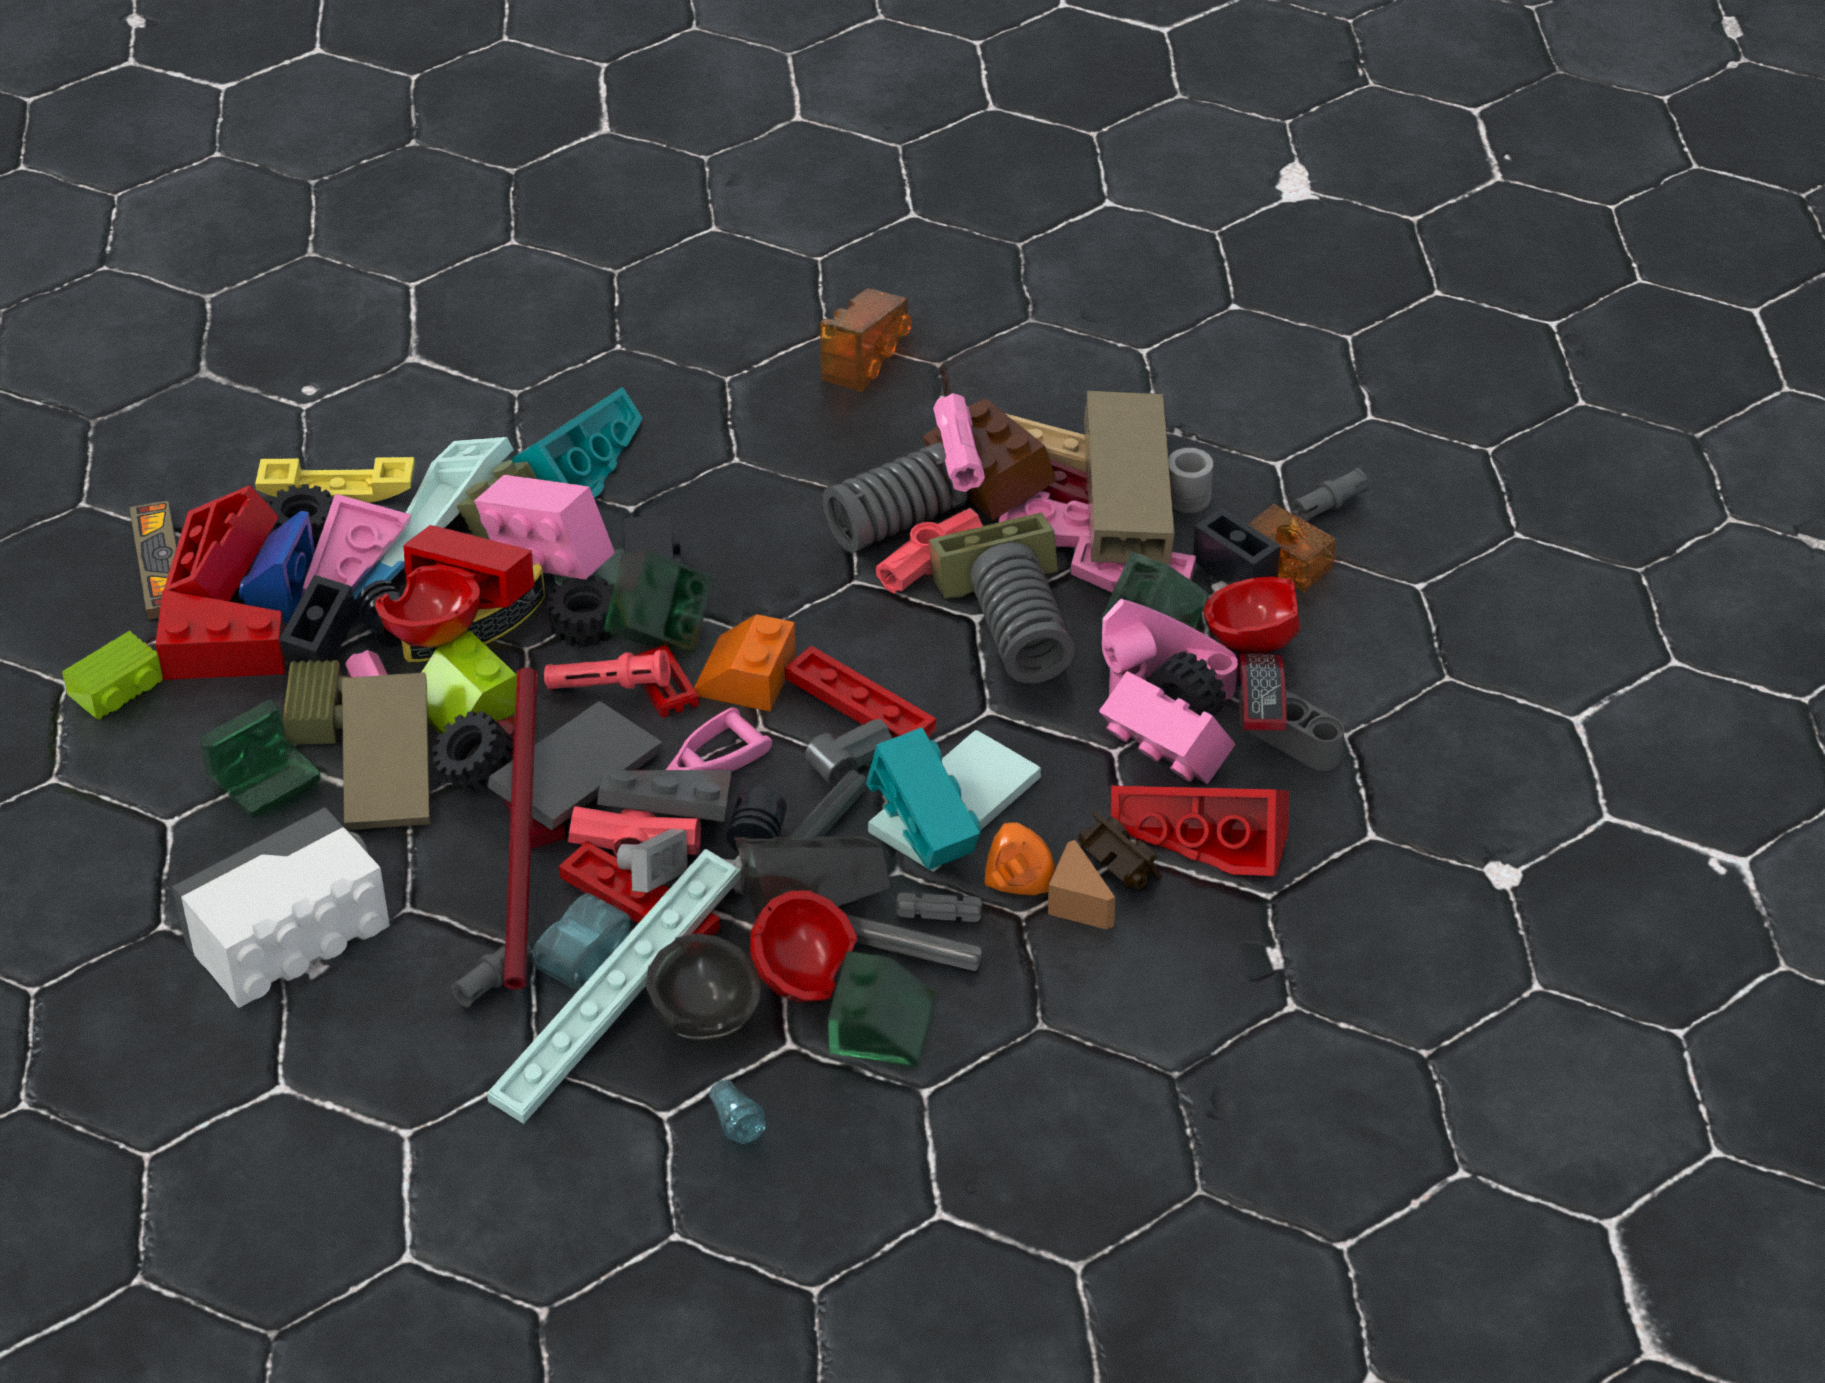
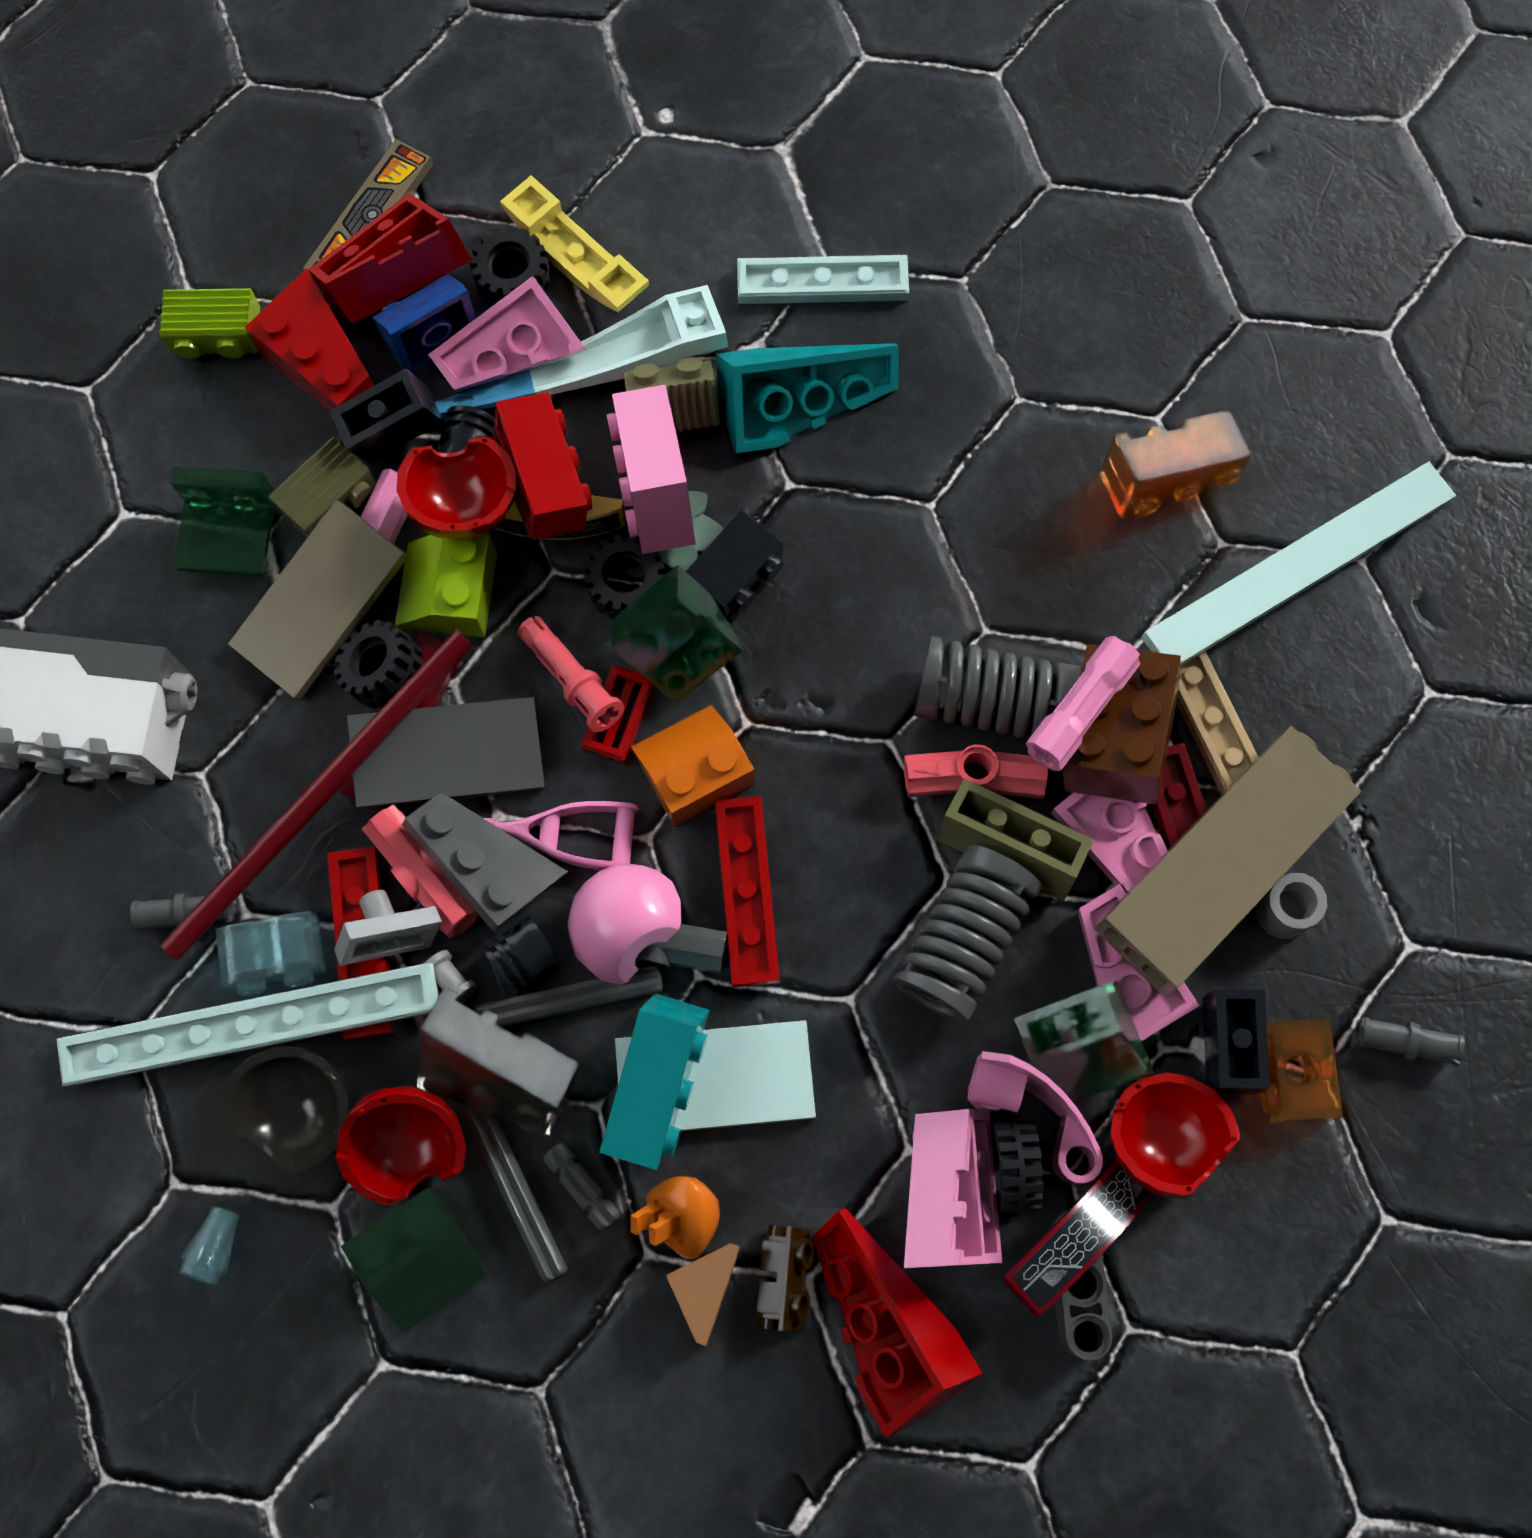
camera: 45 degrees right, 30 degrees up
(525, 398) = (822, 279): none -> light aqua tile
(800, 754) = (620, 916): none -> bright pink cylinder
(1002, 326) = (1300, 565): none -> light aqua tile

